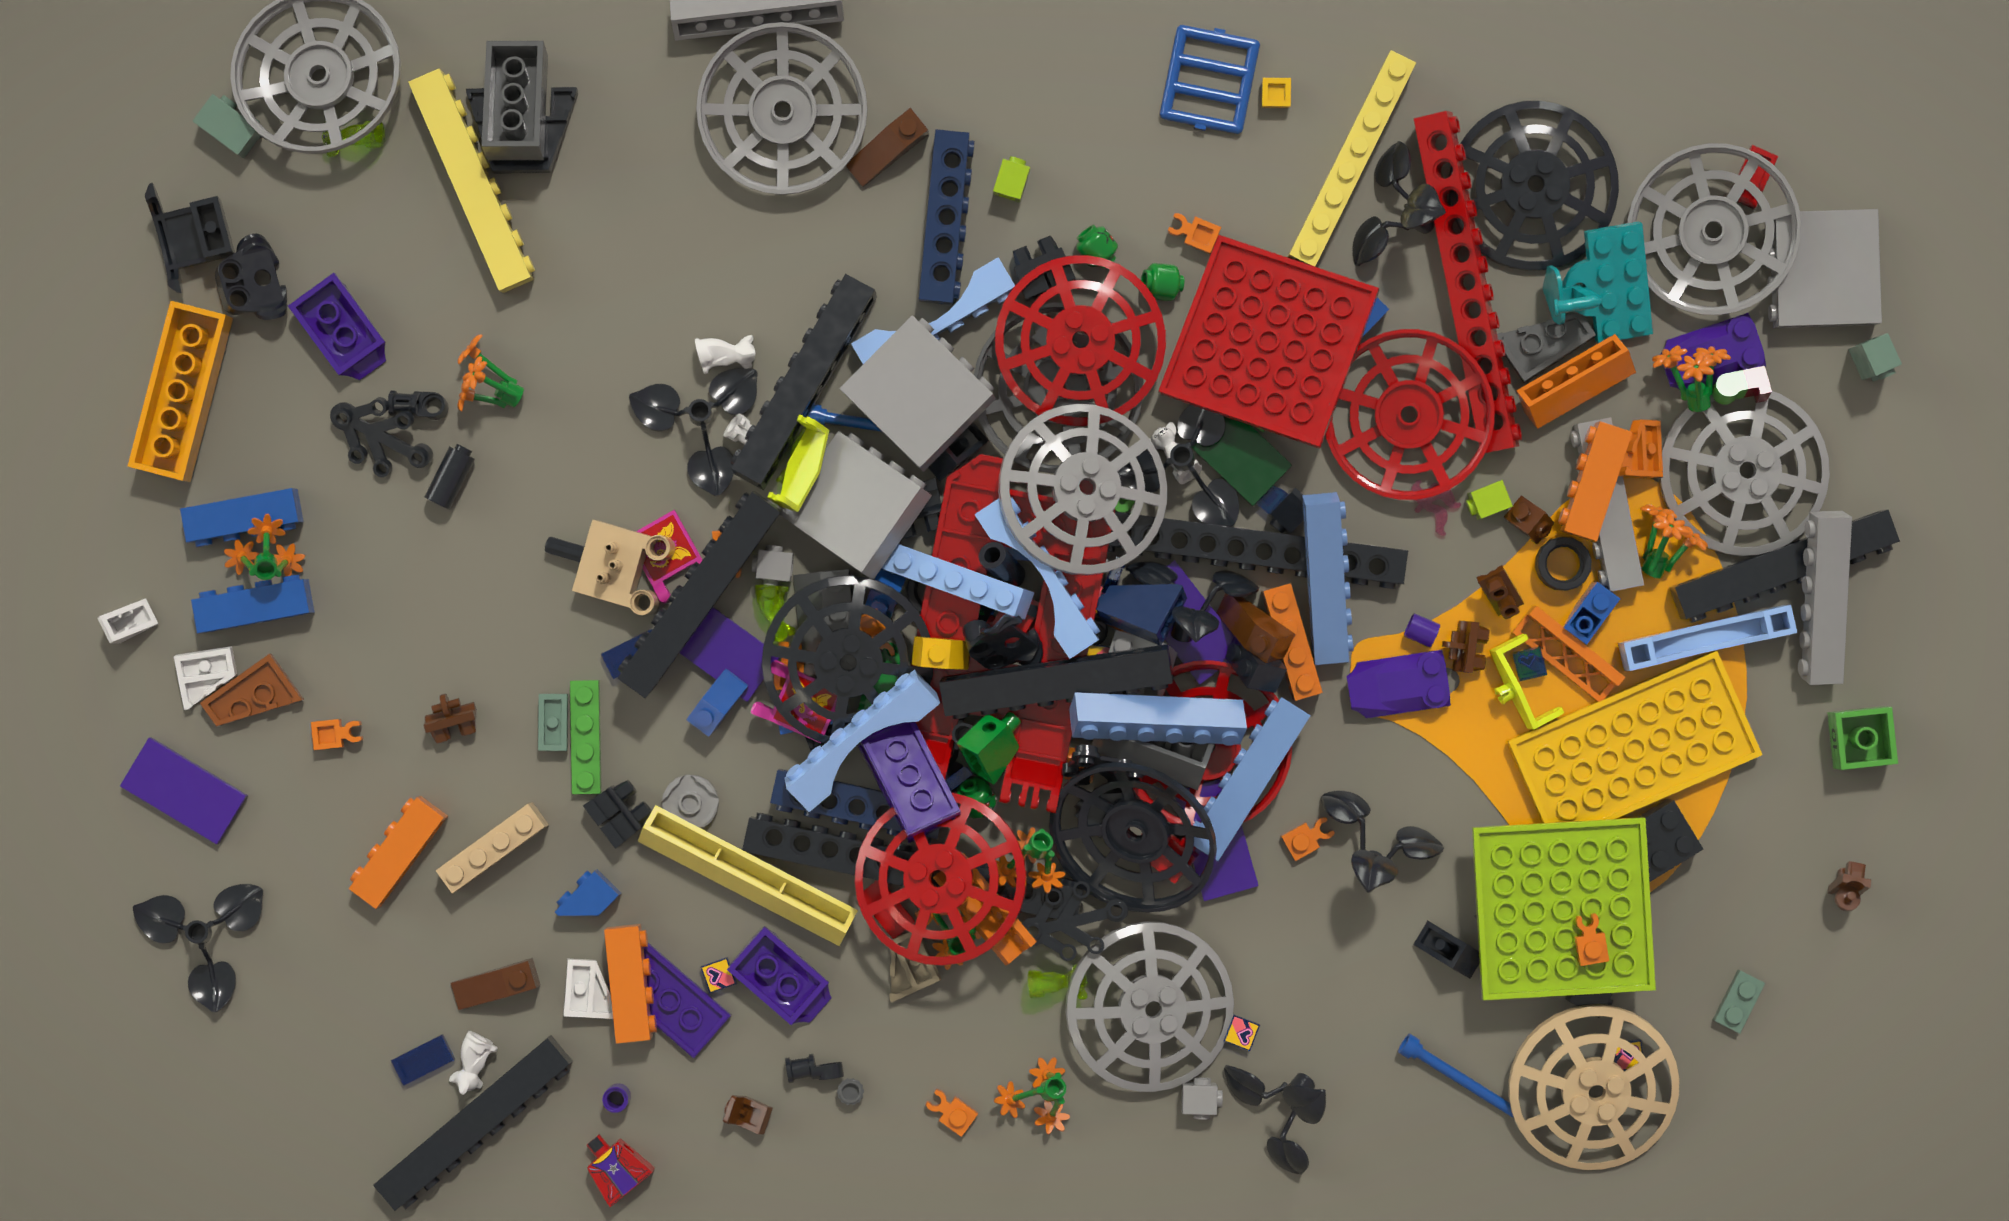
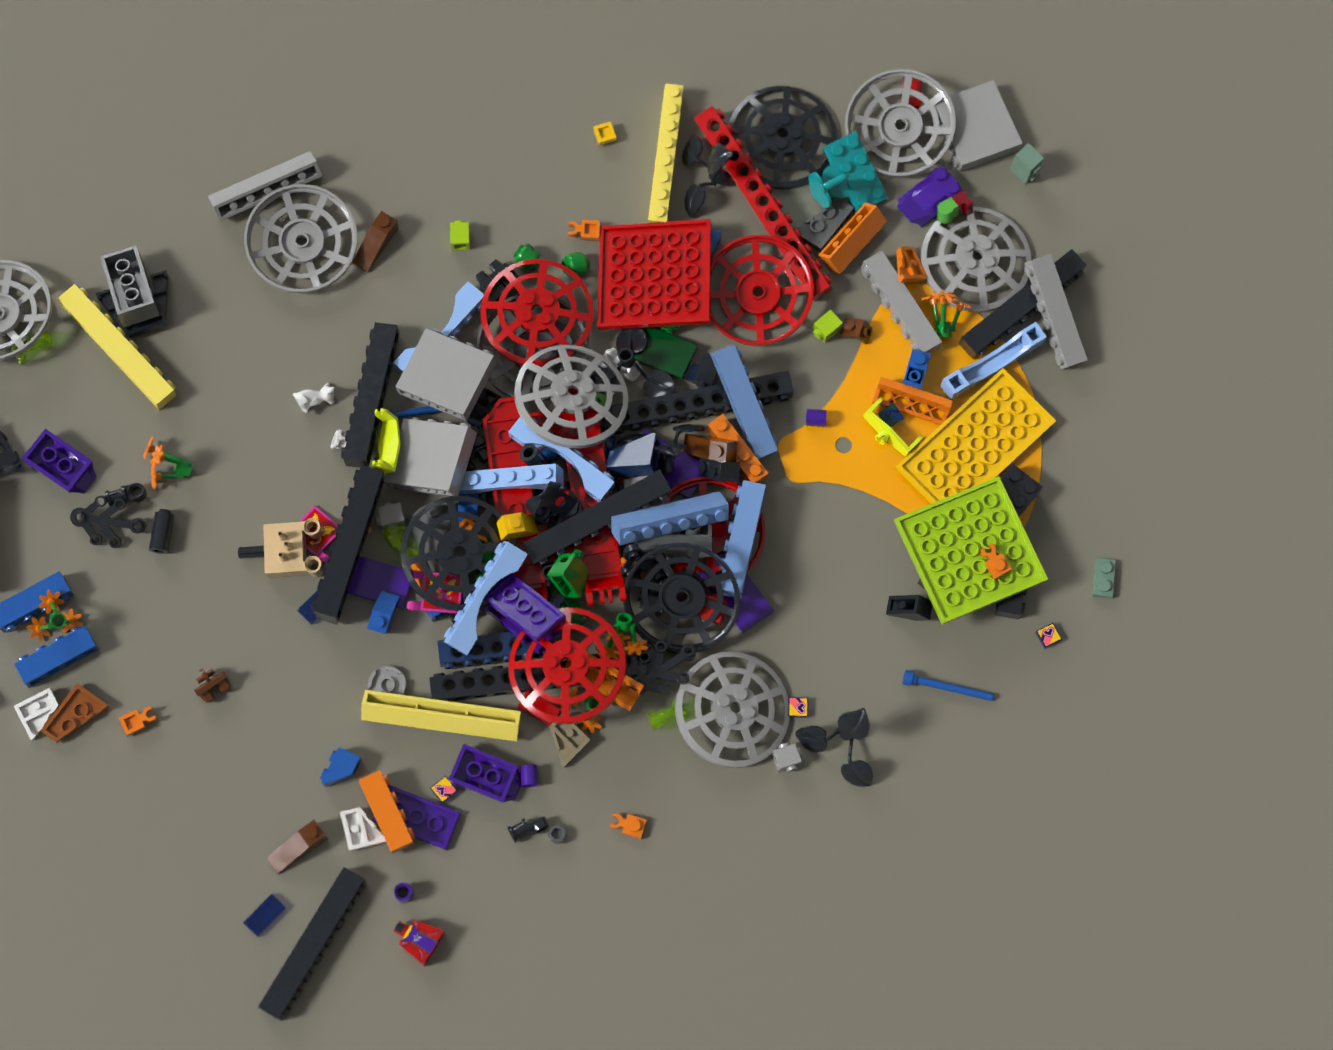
camera: 25 degrees left, 15 degrees down
(183, 790) = (46, 793): dark purple tile -> none
(239, 908) = (57, 883): black plant -> none
(397, 852) = (203, 782): orange brick -> none
(473, 1057) = (298, 899): white animal -> none
(492, 847) = (266, 757): tan brick -> none
(553, 722) = (279, 663): sand green plate -> none
(585, 736) = (304, 667): bright green plate -> none
(613, 801) = (339, 708): black hips -> none
(732, 389) = (327, 419): black plant -> none
(747, 1113) = (494, 872): reddish brown bracket -> none
(840, 998) = (529, 775): none -> dark purple beam
(945, 144) = (433, 316): dark blue brick -> none
(1051, 1089) = (686, 778): orange plant -> none
(1173, 86) = (581, 128): blue bar -> none
(1302, 839) = (791, 572): orange plate -> none
(1370, 866) = (838, 564): black plant -> none
(1399, 684) = (815, 456): dark purple slope -> none
(1440, 512) = (788, 342): clear pink piece -> none
(1464, 644) = (845, 418): reddish brown hips -> none
(1501, 592) = (855, 376): reddish brown hips -> none
(1579, 549) = (894, 336): black tyre -> none
(1585, 1075) = (1024, 661): tan dish -> none
(1595, 481) = (887, 288): orange brick -> none
(1697, 393) = (929, 220): plant -> none
(1849, 886) = (1142, 479): reddish brown hips -> none
(1862, 738) = (1112, 388): bright green brick -> none

